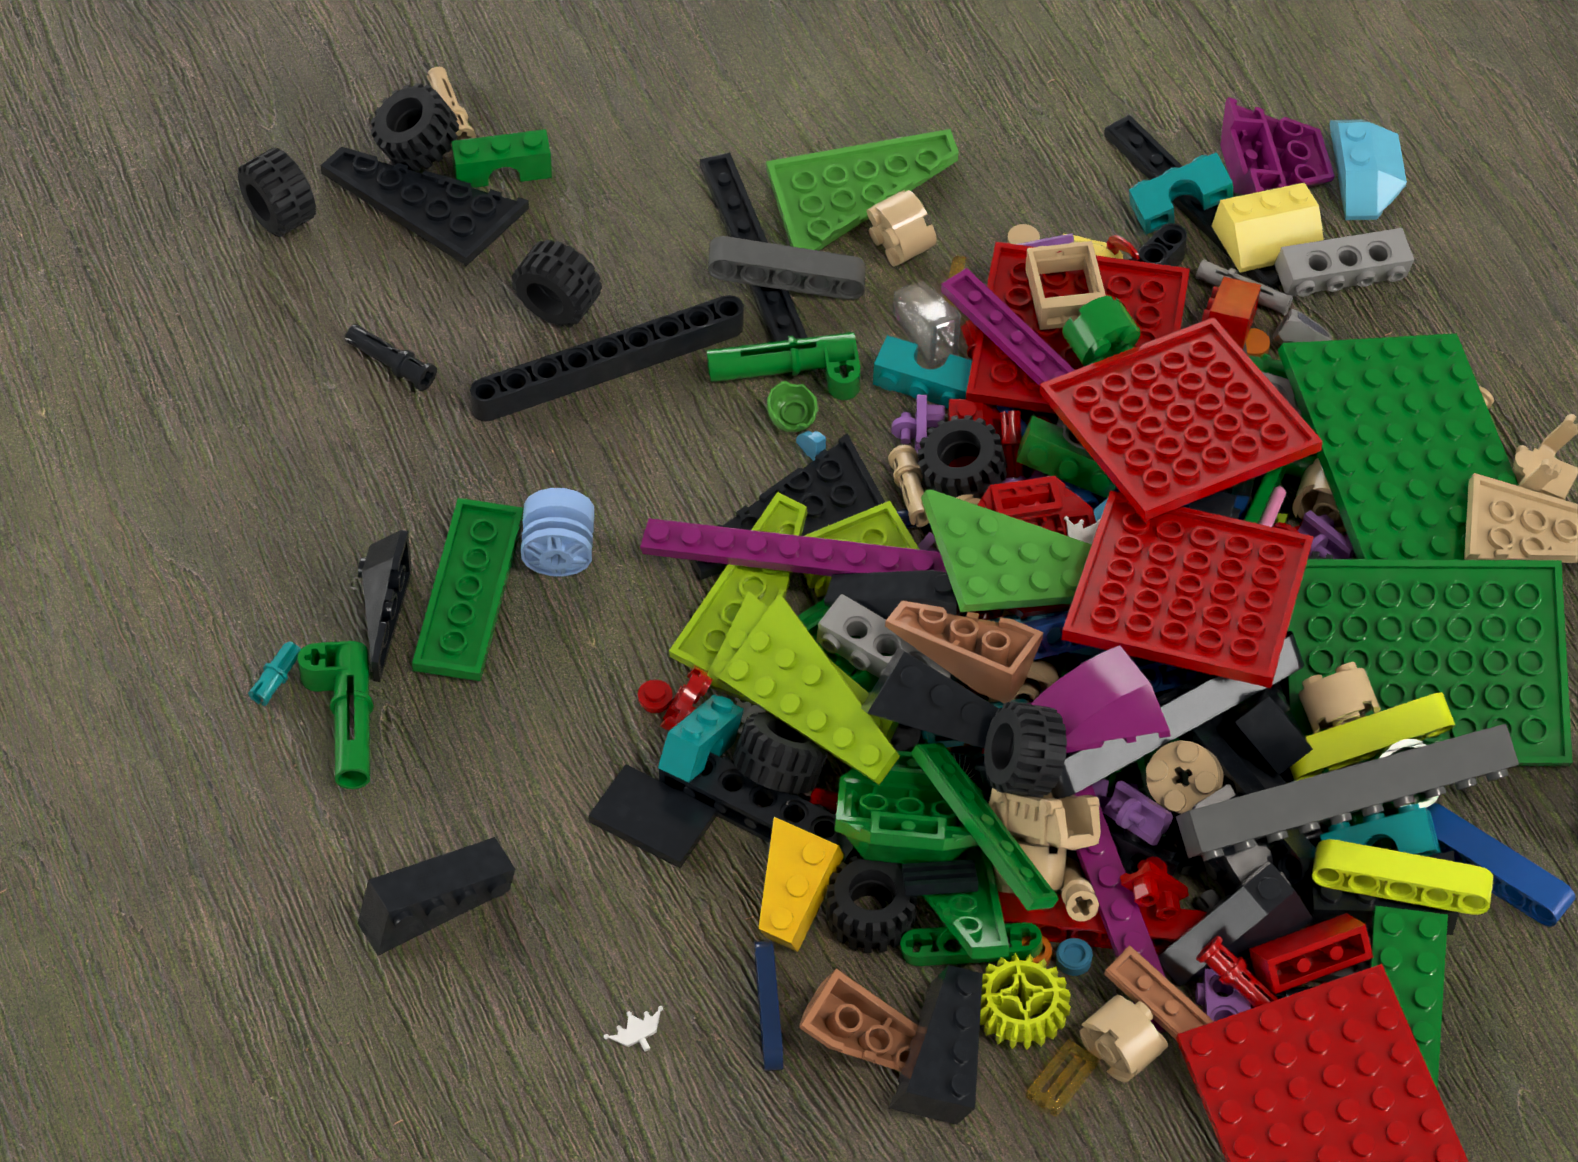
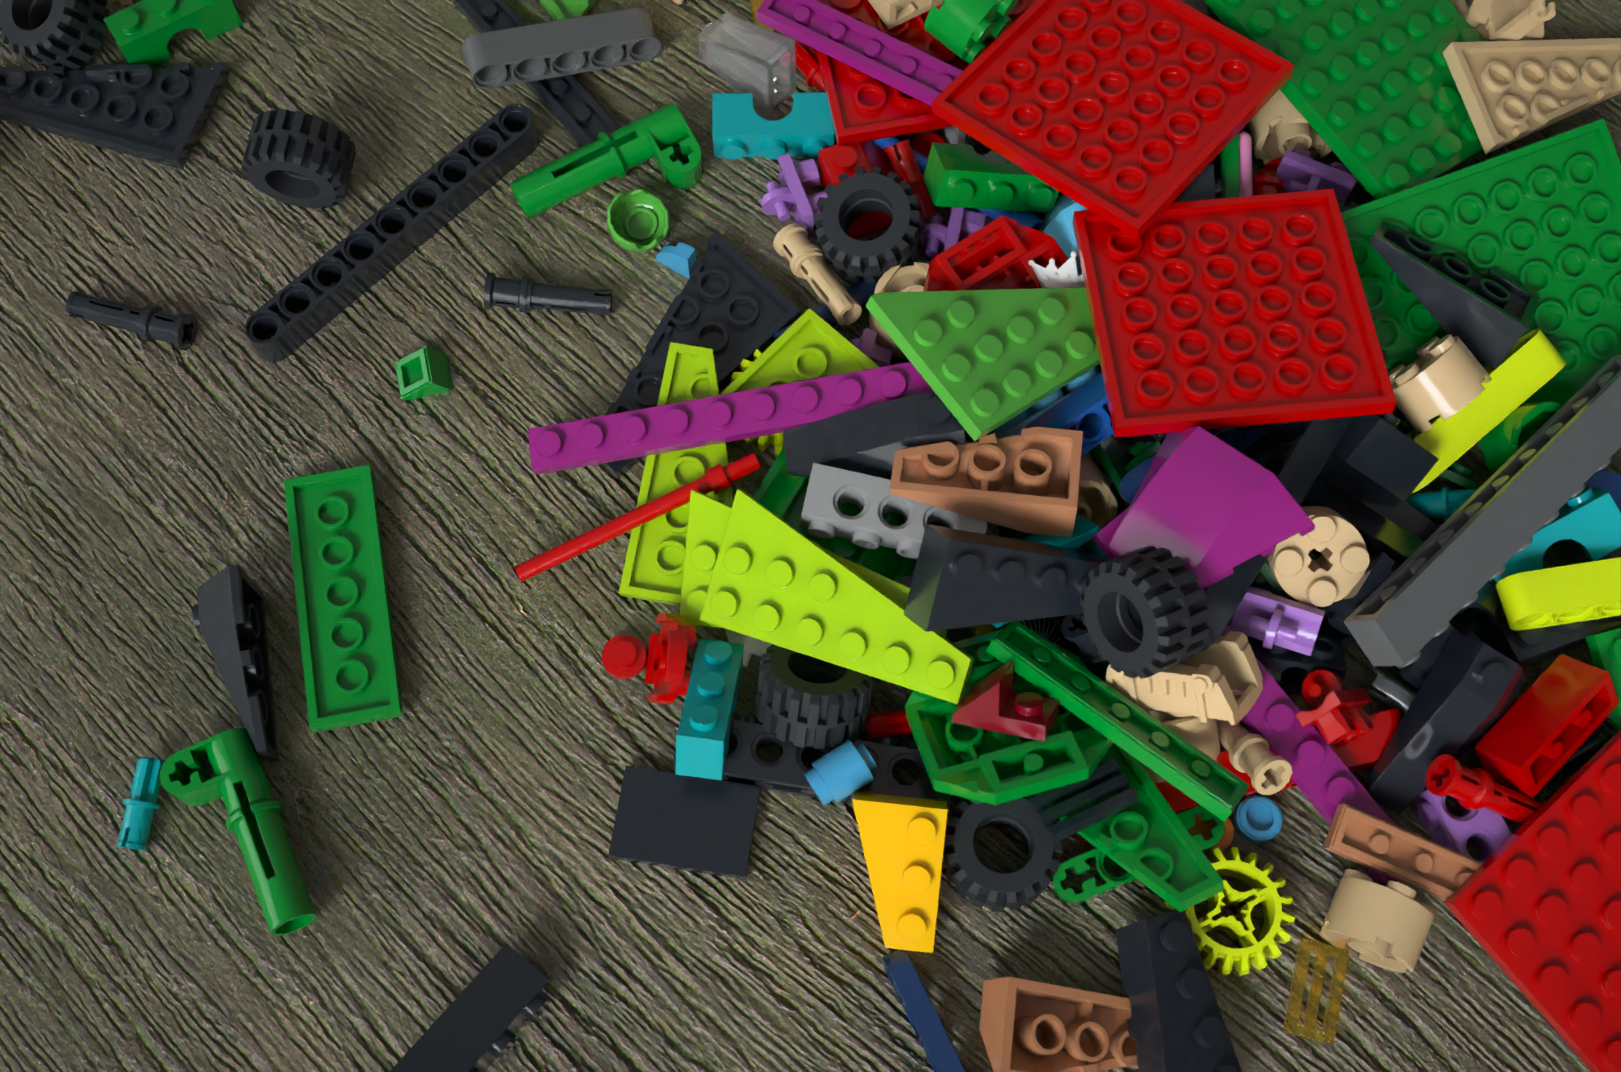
camera: 20 degrees left, 15 degrees up
(557, 532) = (423, 486): light blue wheel -> none
(587, 463) = (423, 374): none -> green slope
(689, 433) = (528, 294): none -> black pin
(764, 594) = (716, 480): none -> red bar
(775, 803) = (841, 772): none -> dark azure brick
(903, 789) = (998, 708): none -> dark red slope
(1391, 657) = (1480, 309): none -> black wedge

